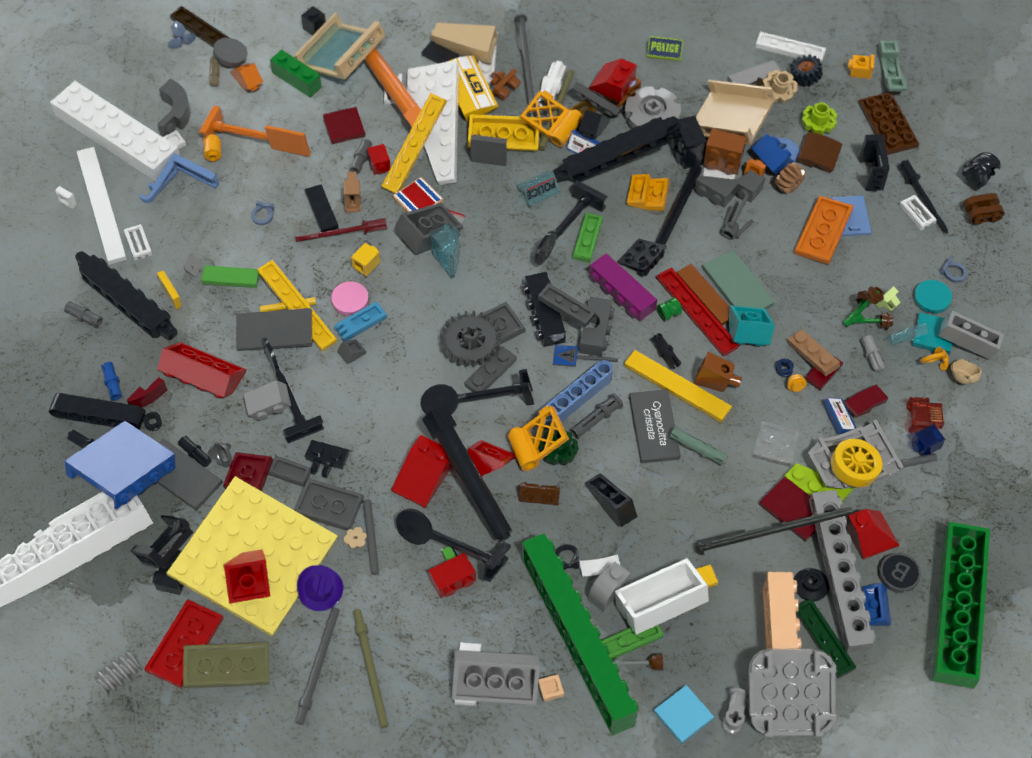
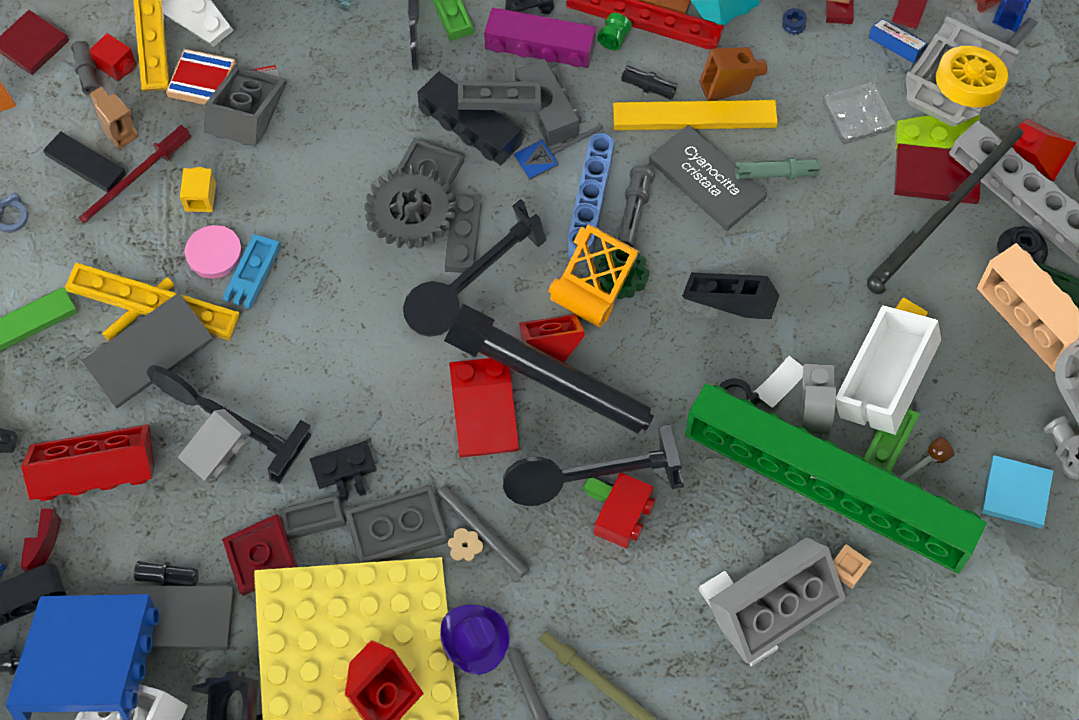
camera: 35 degrees left, 5 degrees up
(151, 427) = (82, 579): black bush -> none
(216, 453) = (195, 556): dark grey piece -> none
(351, 350) = (267, 316): dark grey slope -> none
(446, 247) = (292, 115): clear light blue slope -> none
(542, 495) = (650, 340): reddish brown hinge -> none
(796, 383) = (823, 30): light orange plate -> none

